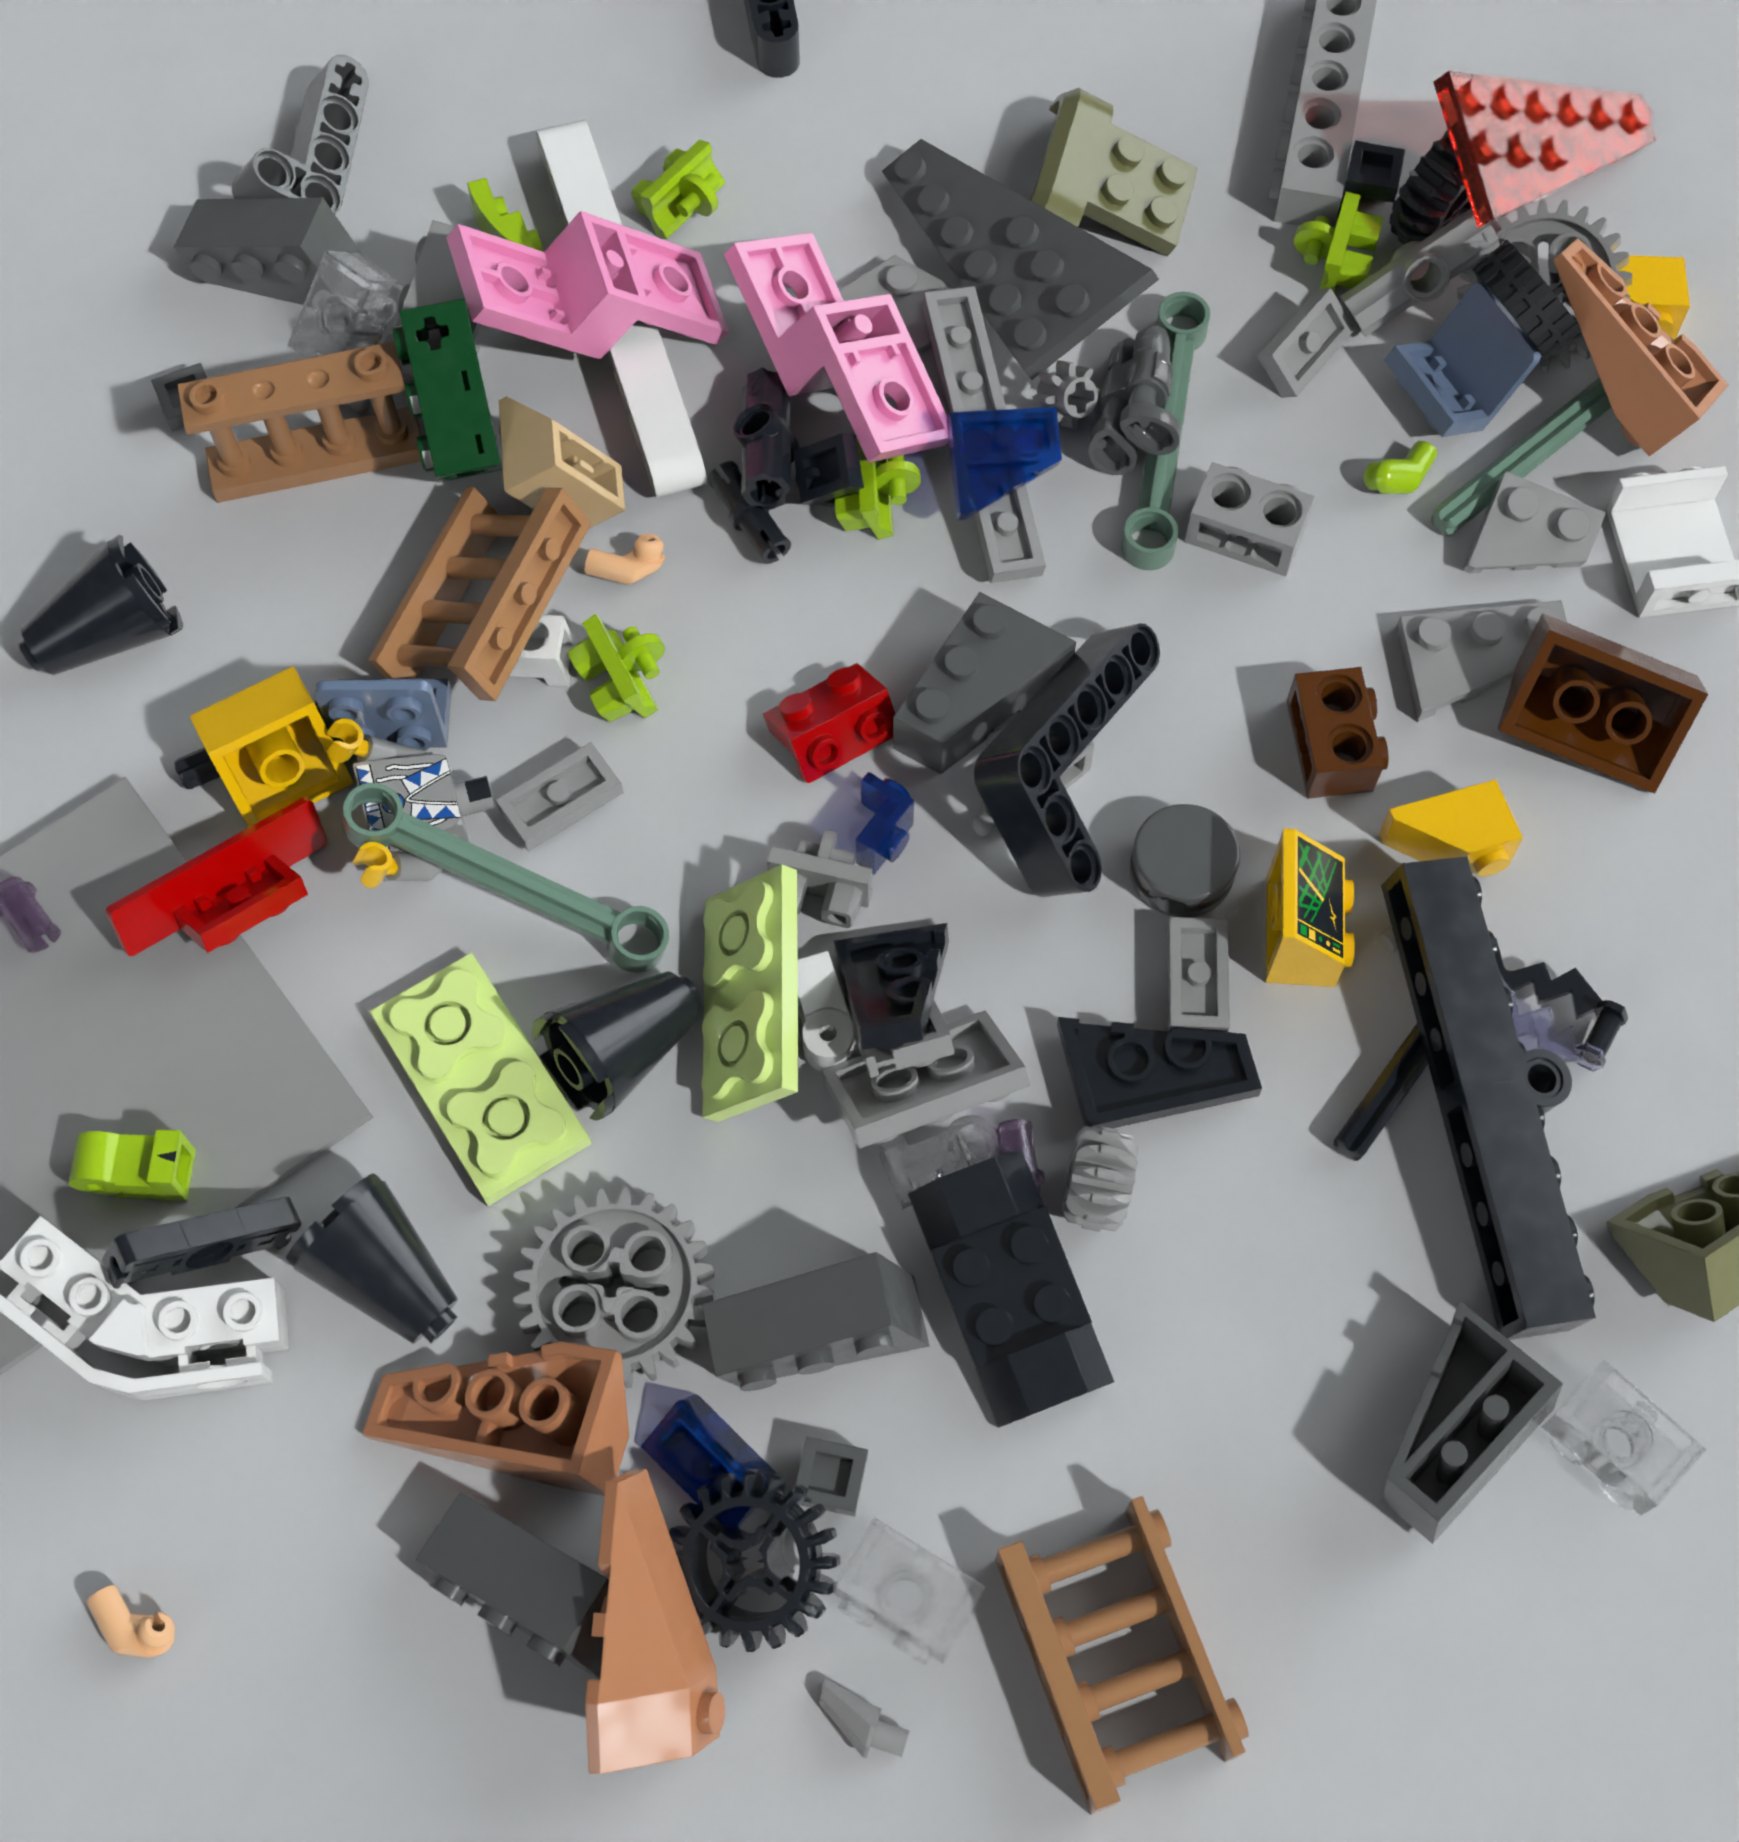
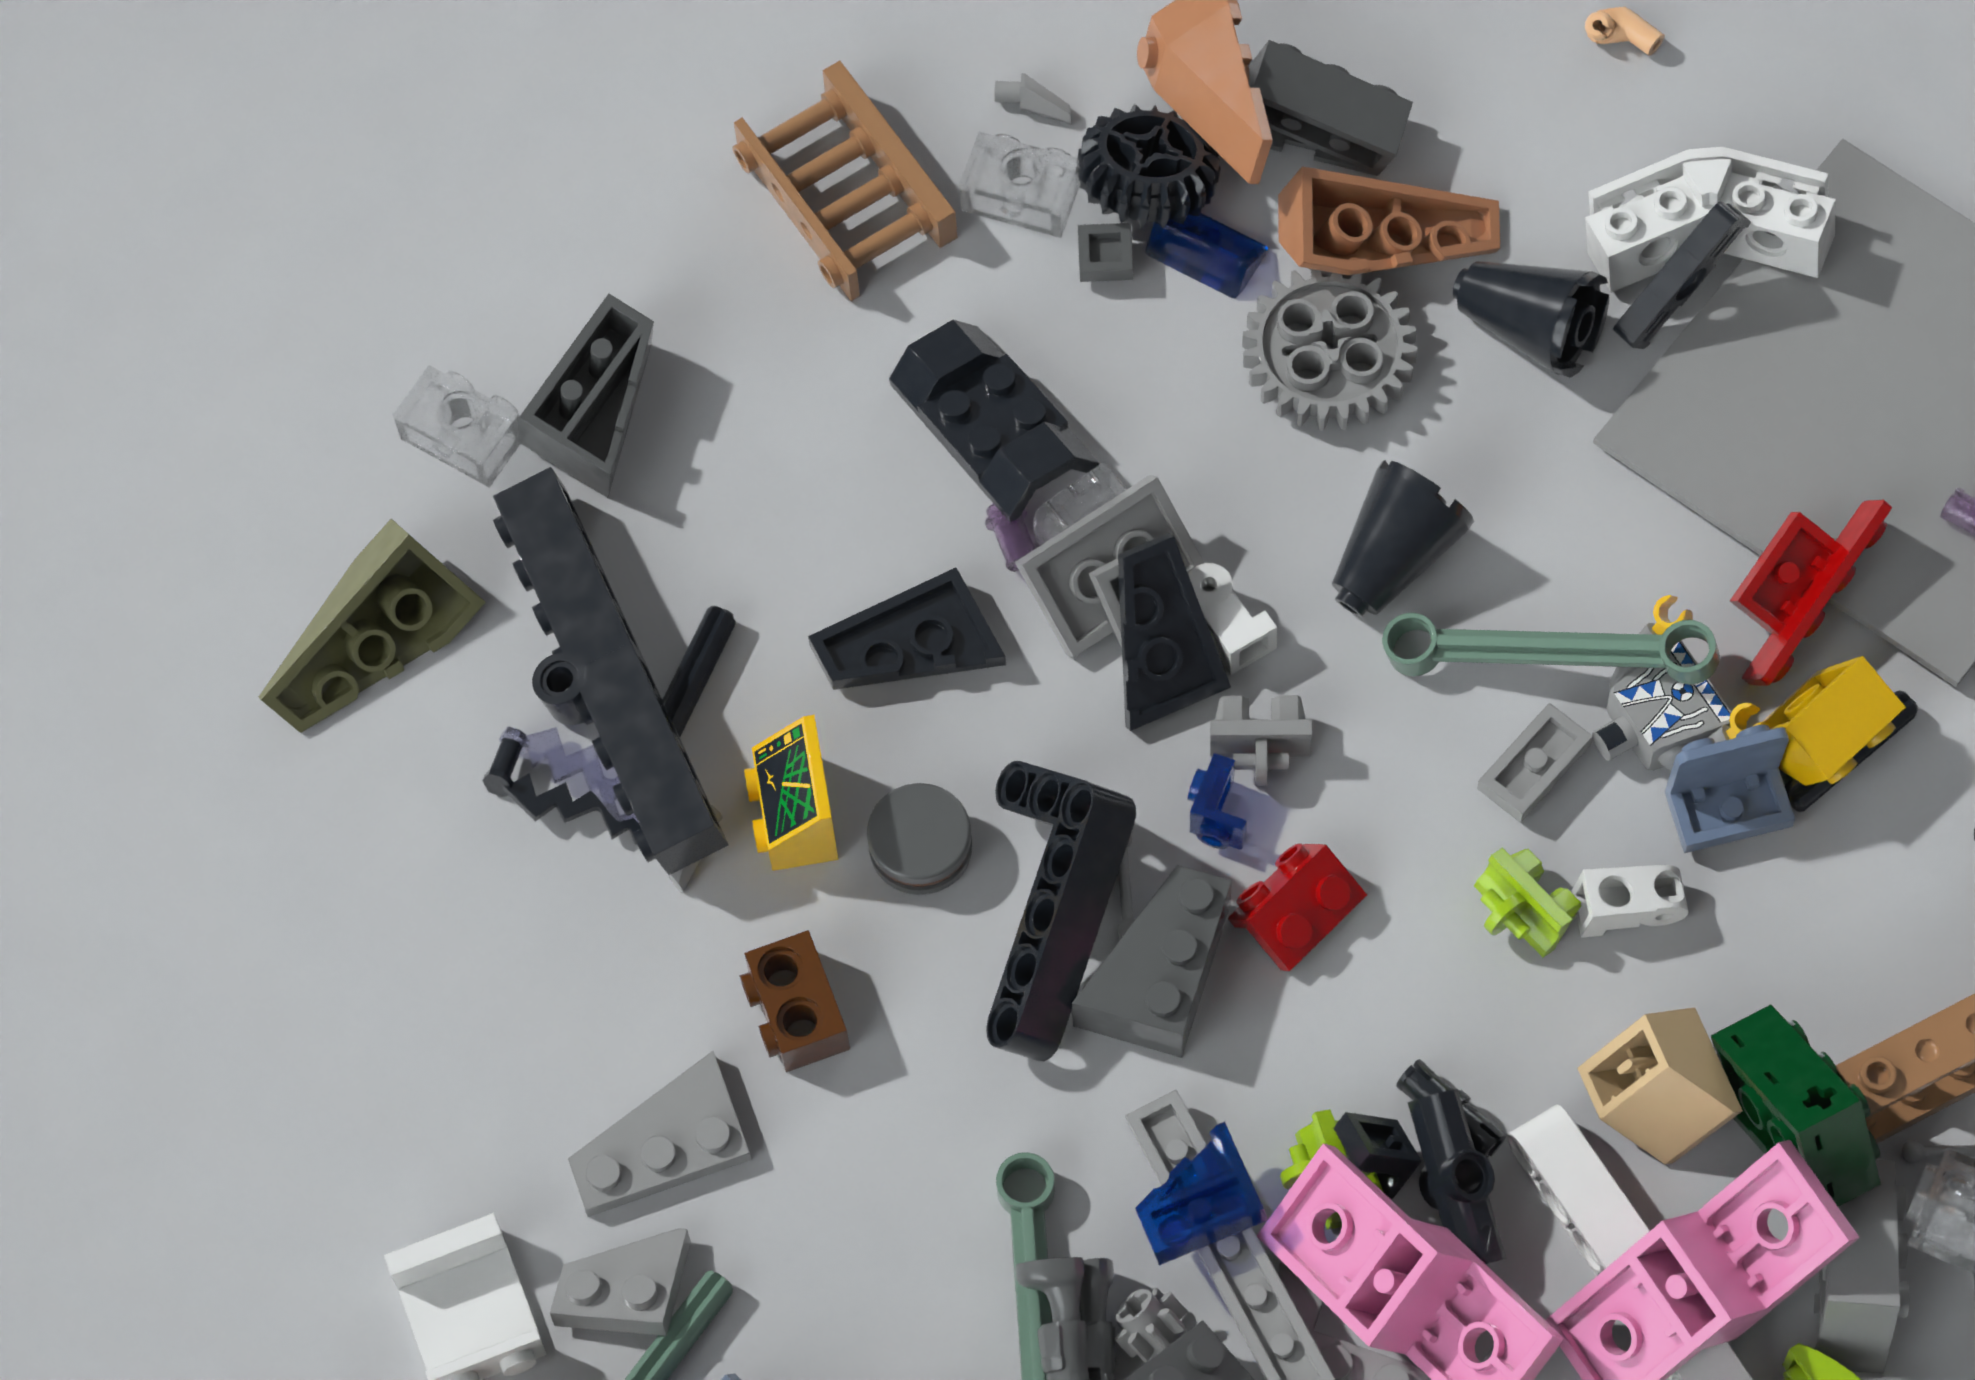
camera: 170 degrees right, 0 degrees up
(133, 1165) = (1774, 333): lime leg -> none
(480, 1079) = (1518, 498): yellowish green piece -> none
(511, 607) = (1638, 910): medium nougat fence -> none
(630, 567) = (1554, 1026): light nougat arm -> none
(750, 995) = (1290, 602): yellowish green piece -> none
(815, 1322) = (1144, 347): dark grey wedge -> none
(1100, 1178) = (936, 517): light grey gear -> none
(1198, 974) = (885, 732): light grey plate -> none
(1246, 528) = (929, 1208): light grey brick -> none
(1401, 475) = (767, 1327): lime arm -> none
(1457, 824) = (663, 926): yellow slope -> none
(1600, 703) = (535, 1090): reddish brown slope -> none

